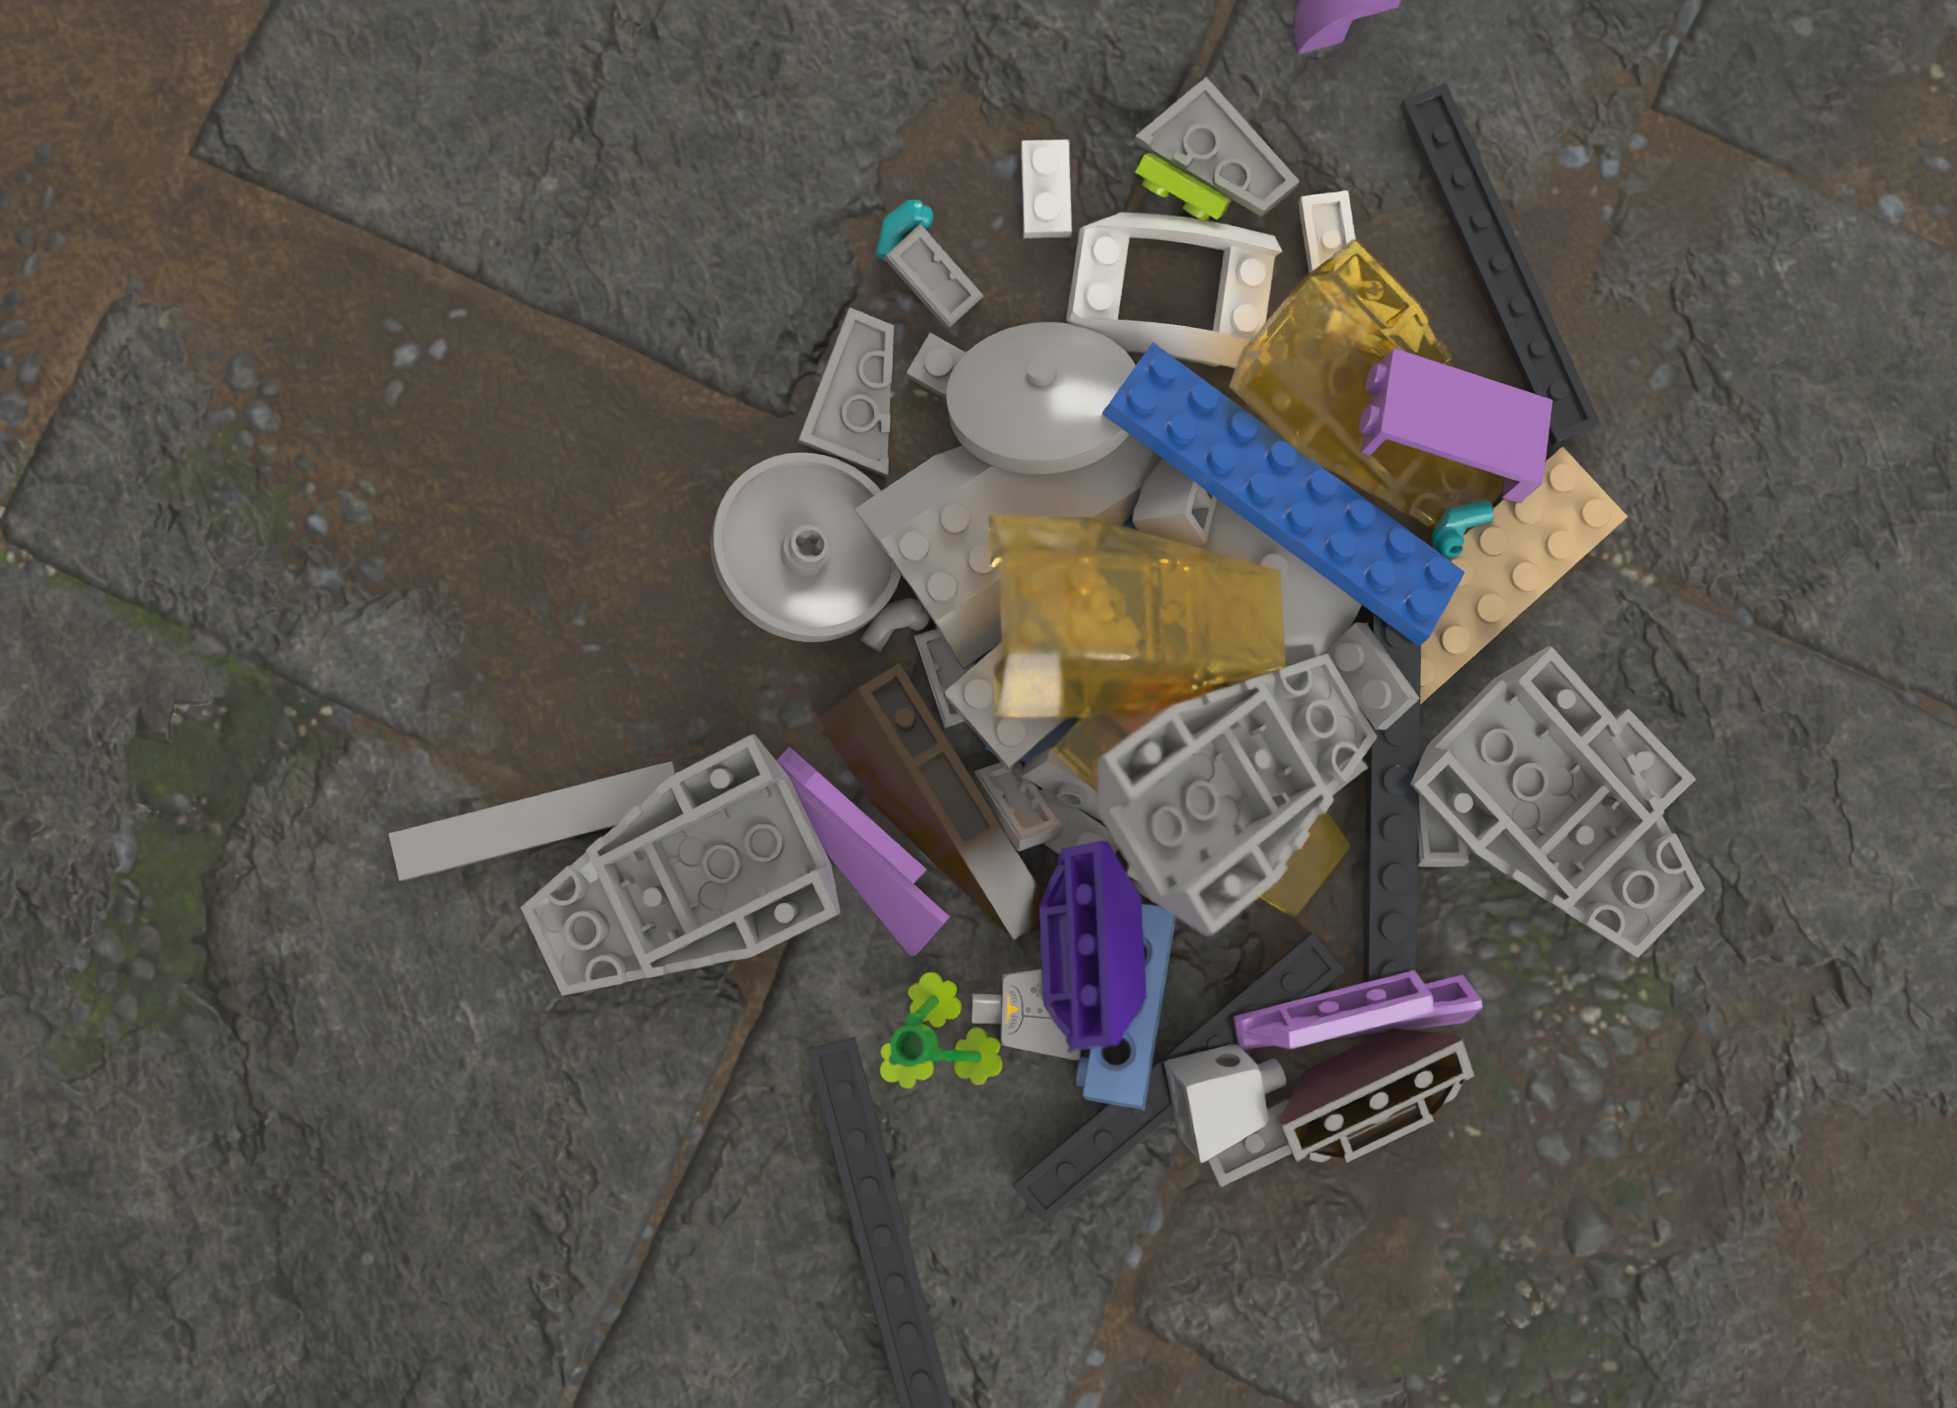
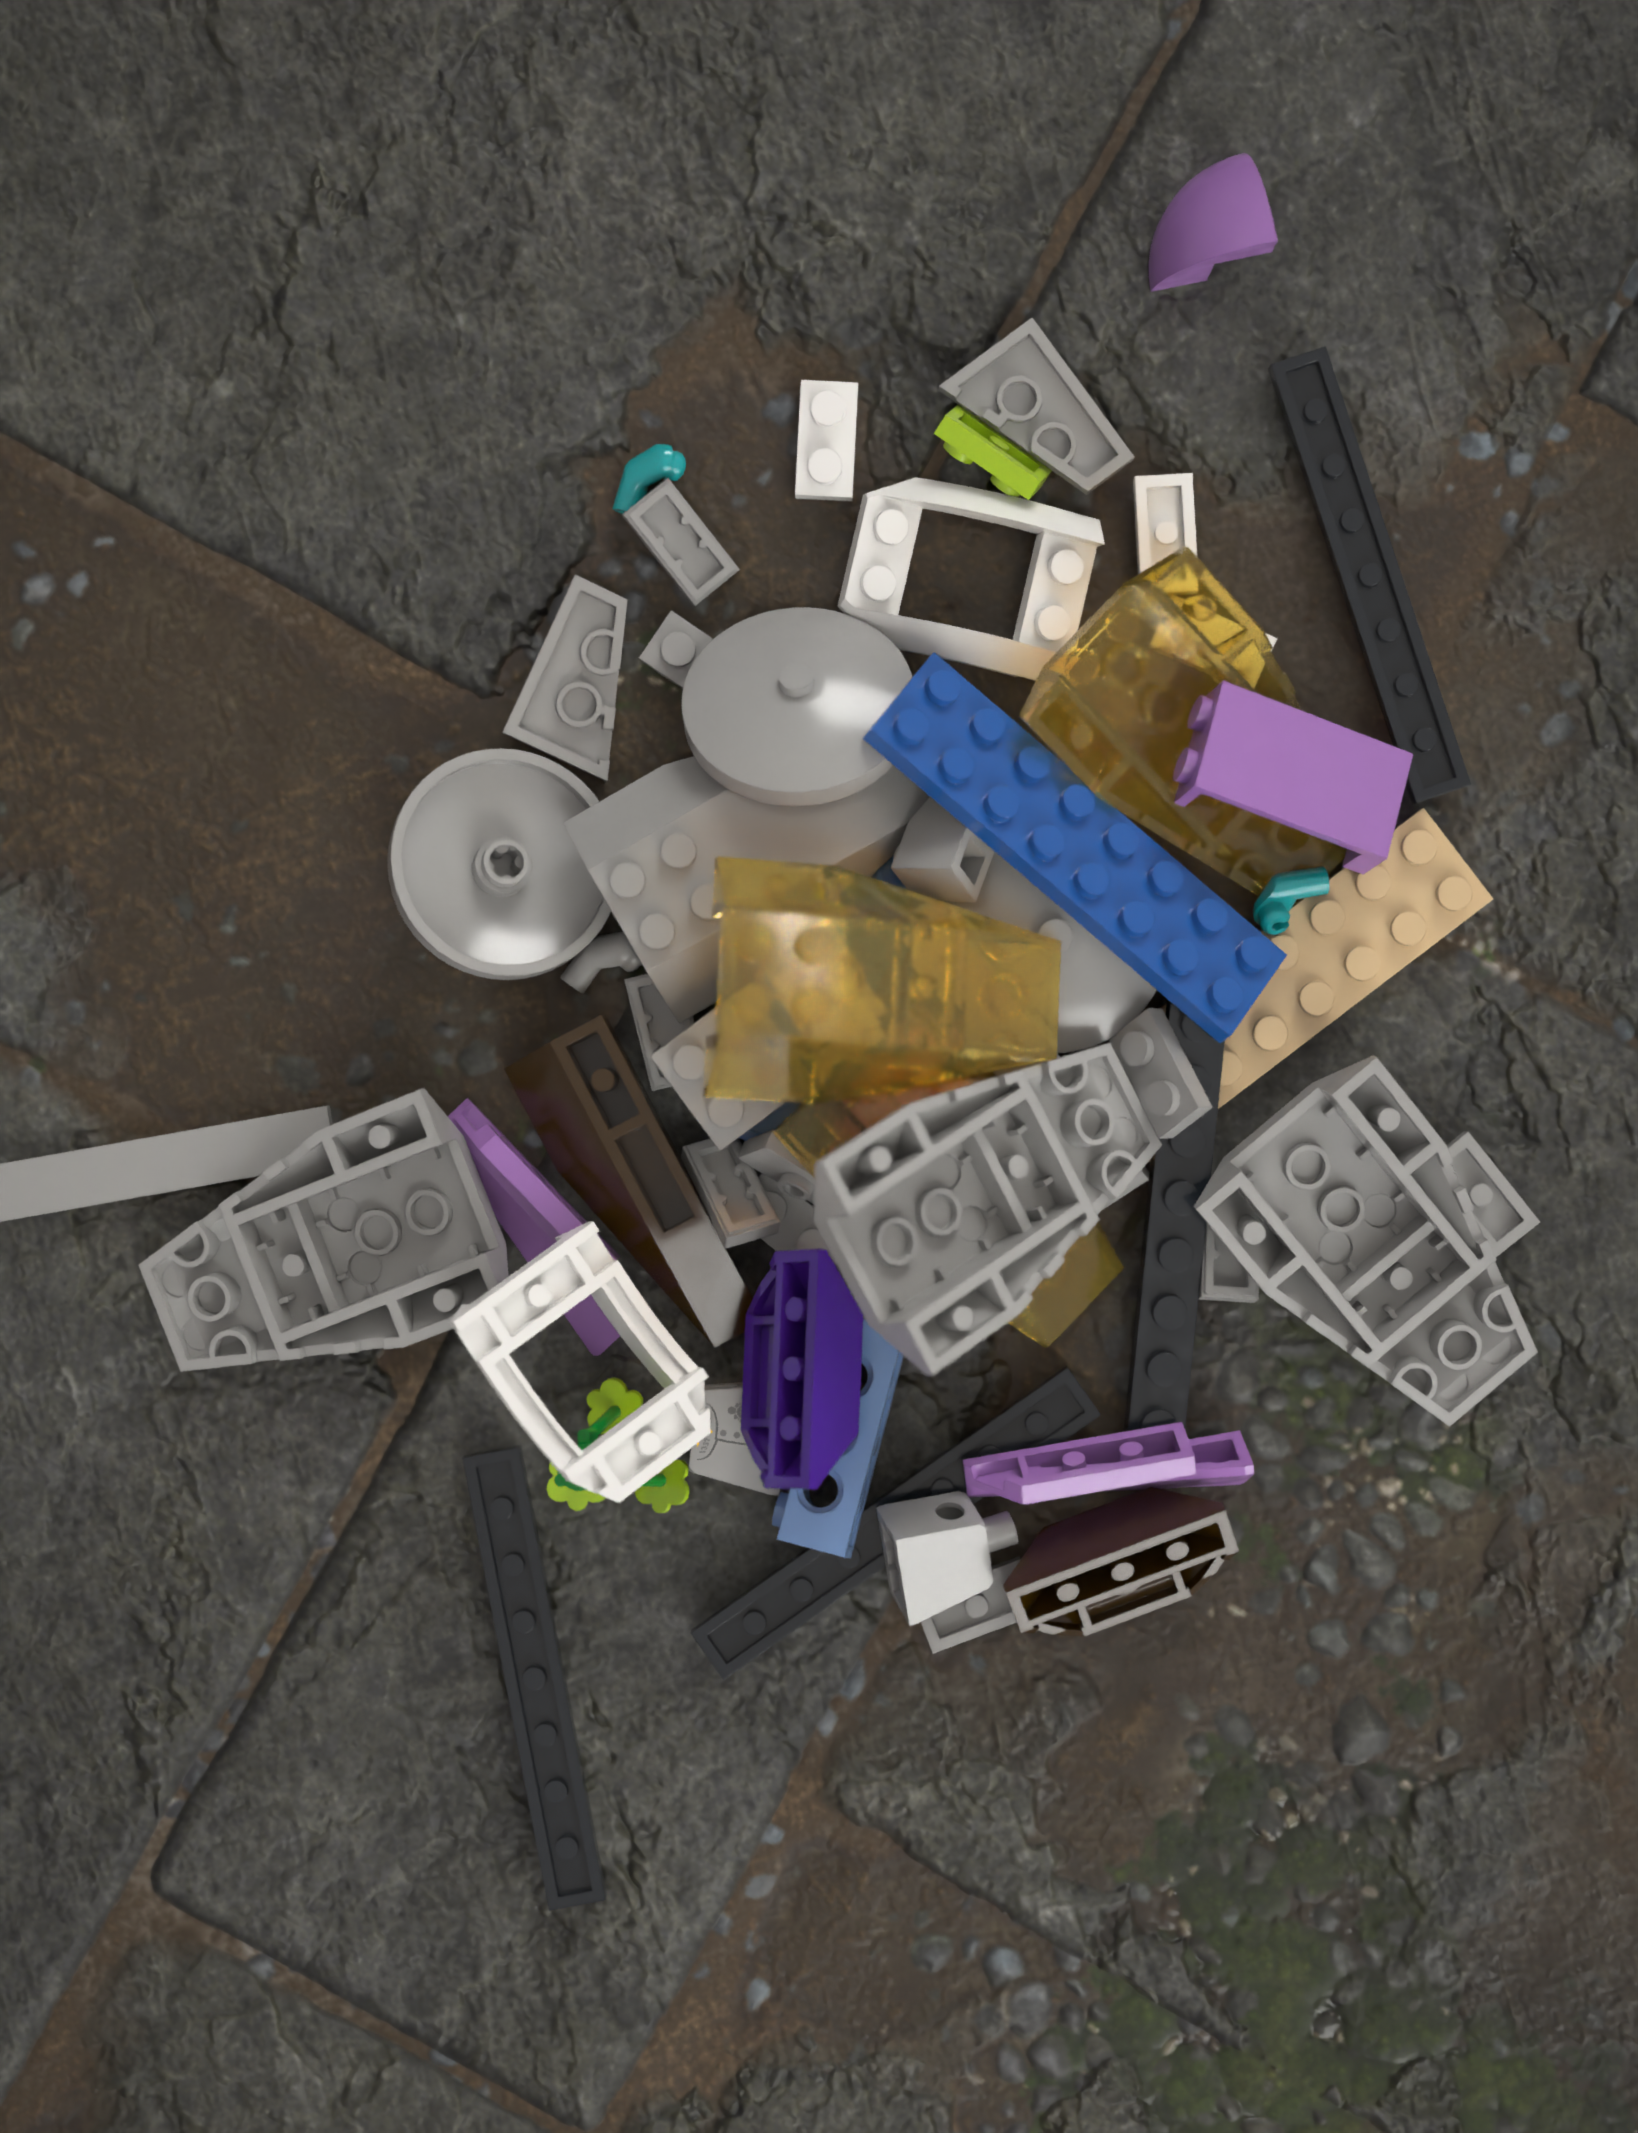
camera: 10 degrees right, 5 degrees up
(864, 901) = (537, 1297): none -> white wedge

